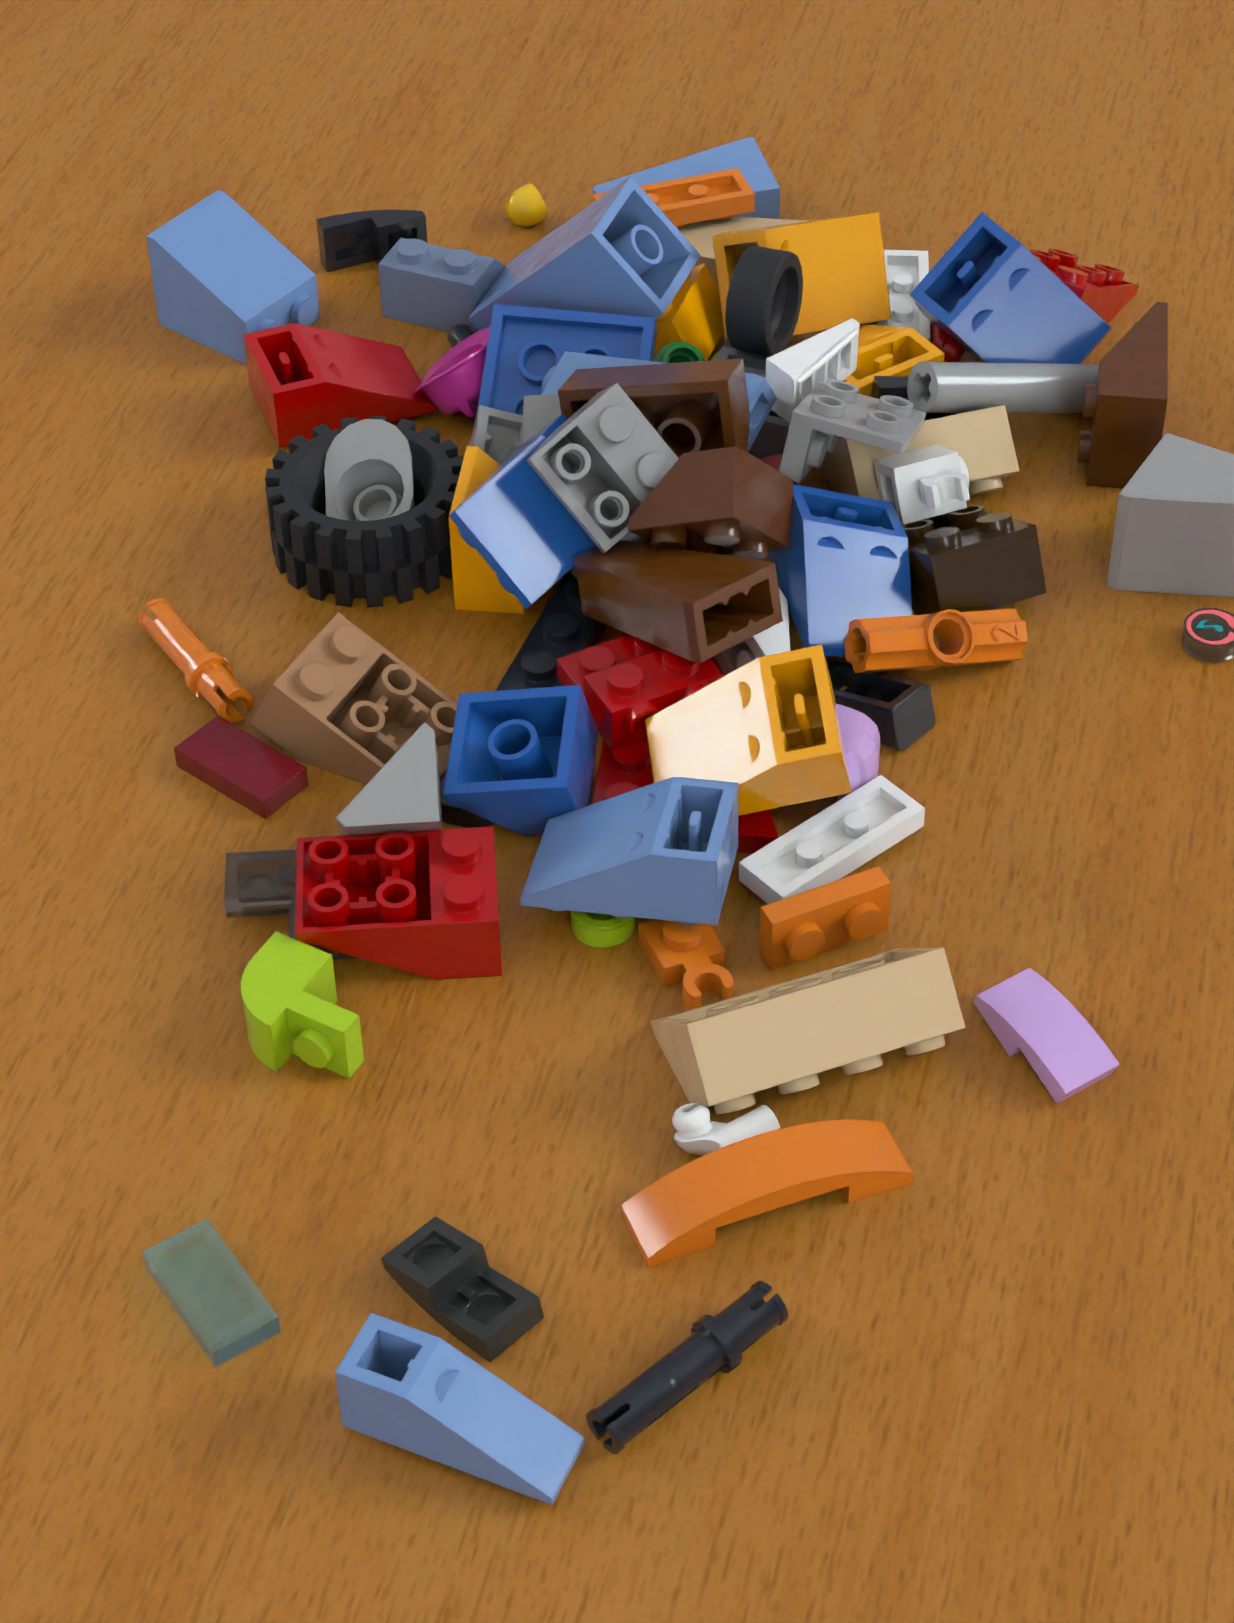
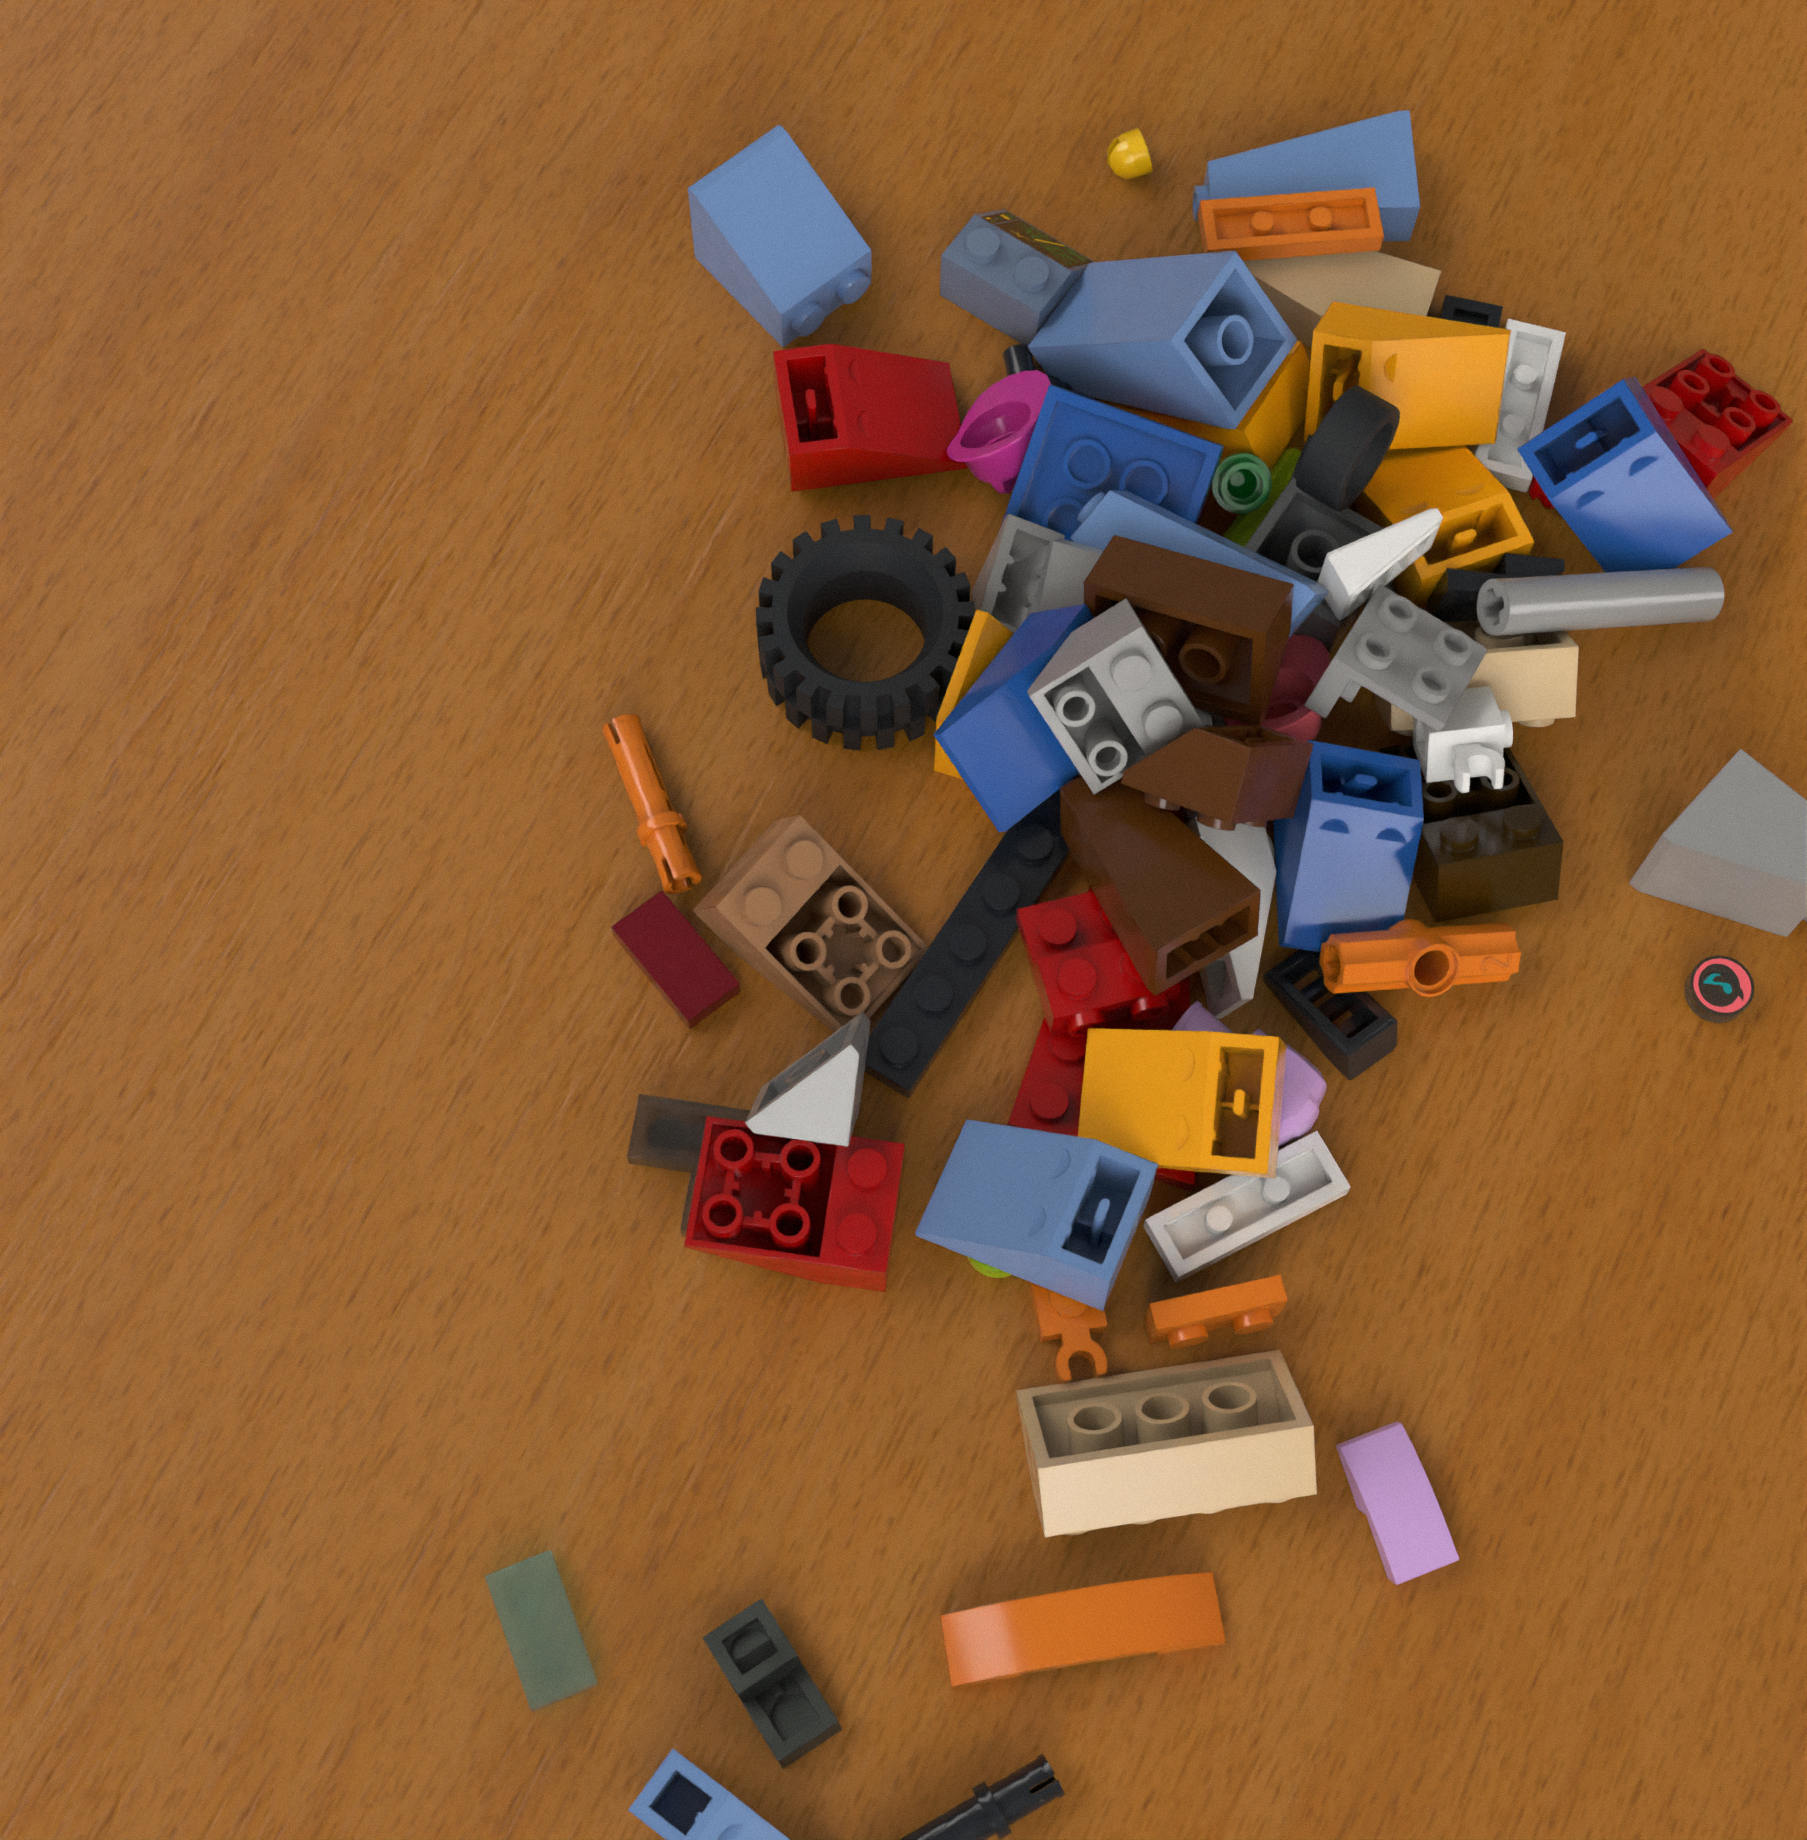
camera: 10 degrees right, 25 degrees up
(292, 1008) = (659, 1301): lime brick -> none
(365, 235) = (965, 180): black slope -> none
(368, 472) = (868, 608): light grey piece -> none
(522, 755) = (954, 1041): blue slope -> none
(700, 1135) = (1051, 1559): white arm -> none
(1127, 403) = (1721, 662): reddish brown slope -> none

